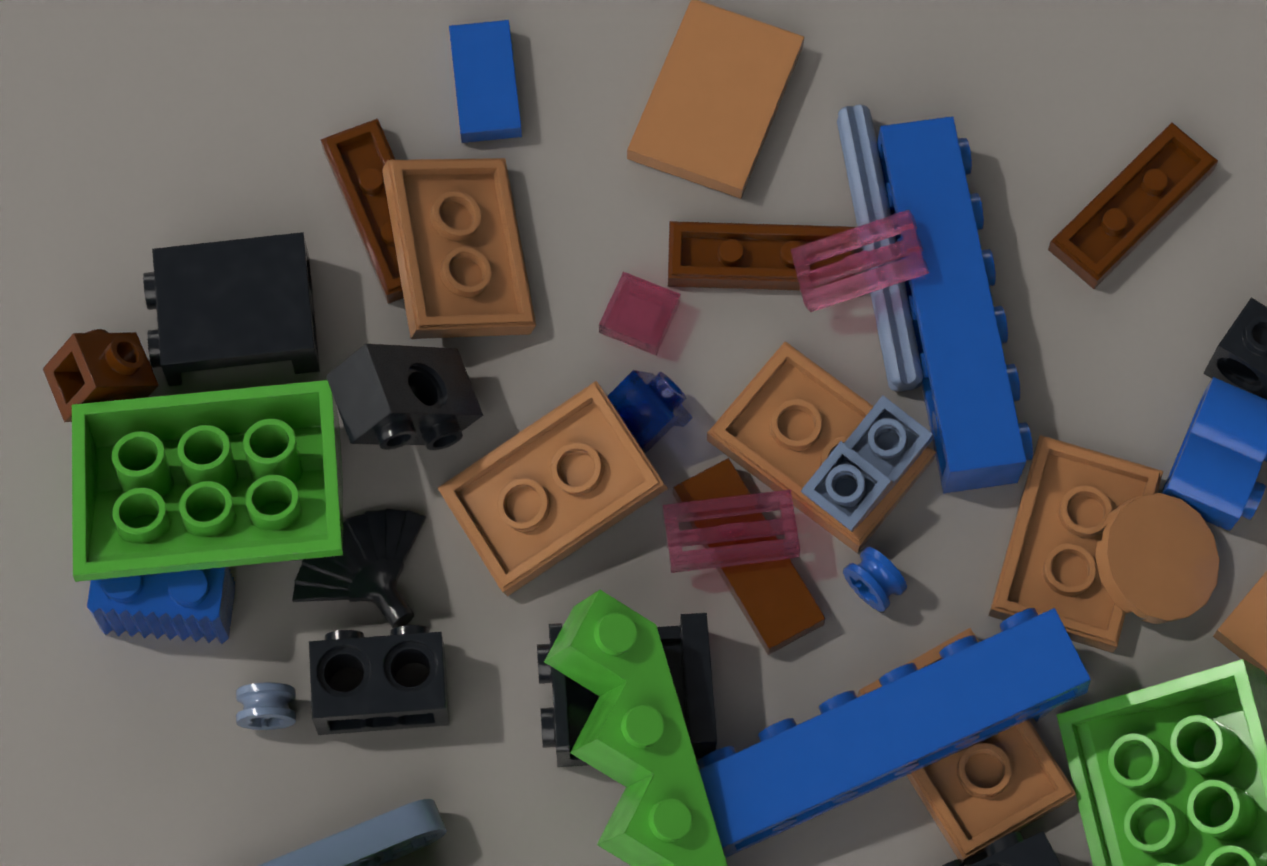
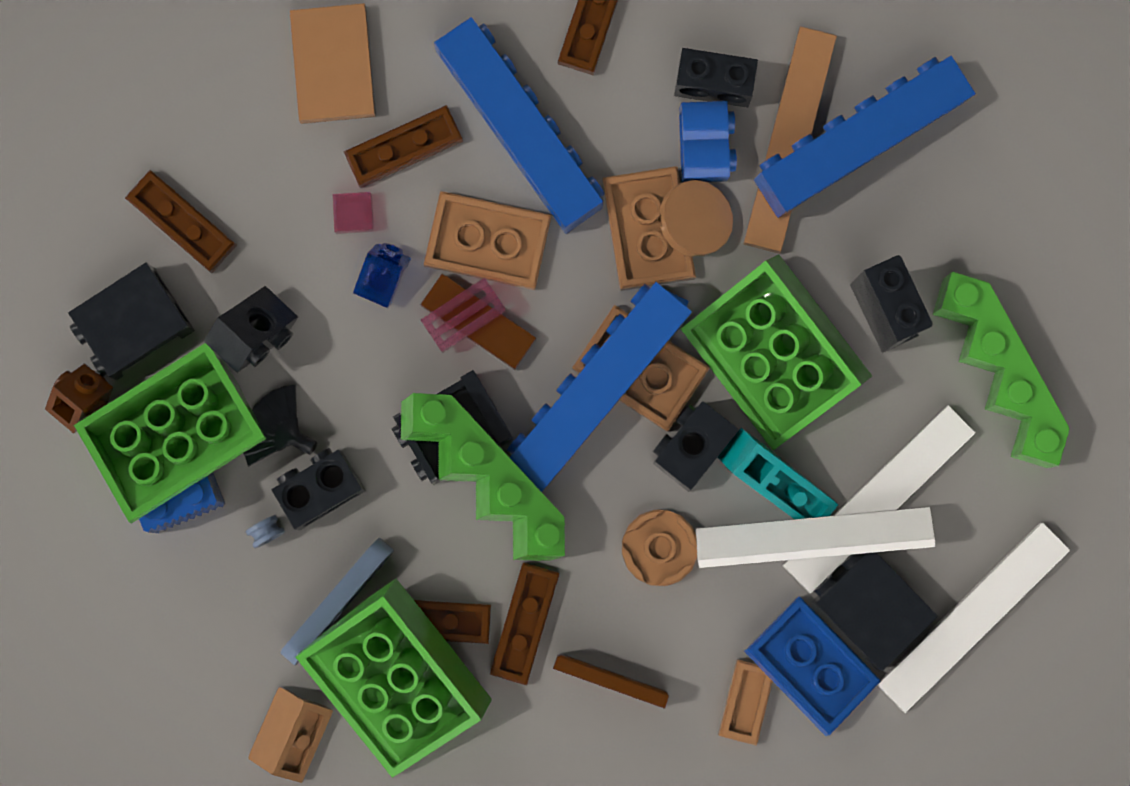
camera: 25 degrees left, 15 degrees up
(458, 248) = (234, 225): medium nougat tile -> none
(485, 81) = (198, 116): blue tile -> none
(552, 488) = (356, 338): medium nougat tile -> none
(865, 282) = (484, 107): clear pink tile -> none
(867, 464) = (518, 242): sand blue slope -> none
(871, 204) = (465, 109): sand blue axle -> none
(875, 579) = (552, 303): blue bush -> none

